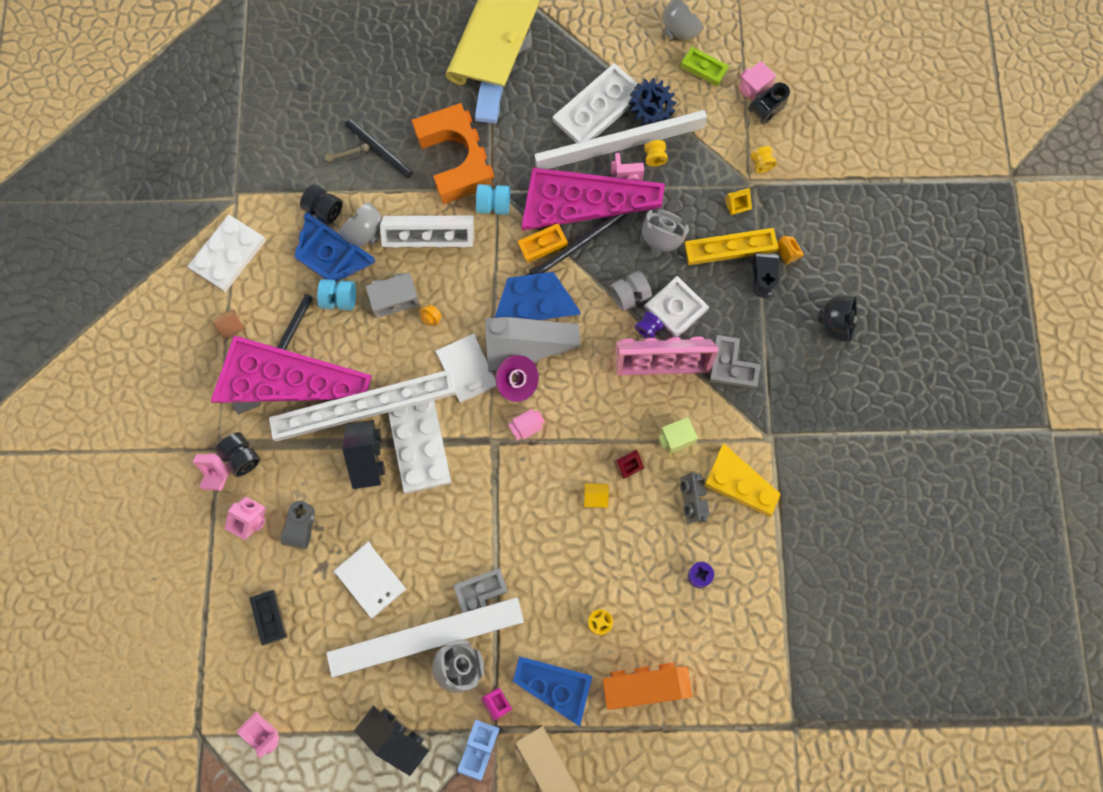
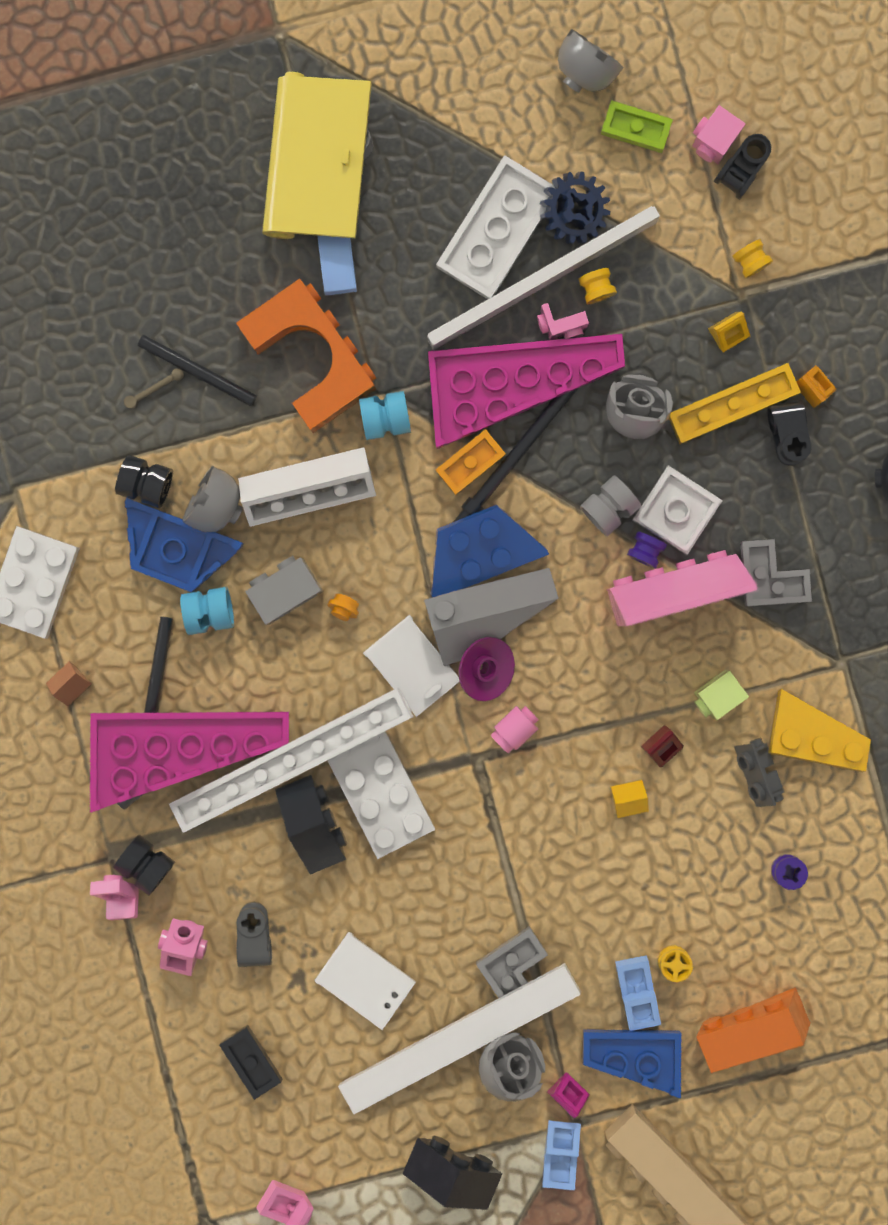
camera: 20 degrees left, 15 degrees up
(567, 639) = (638, 993): none -> light blue slope

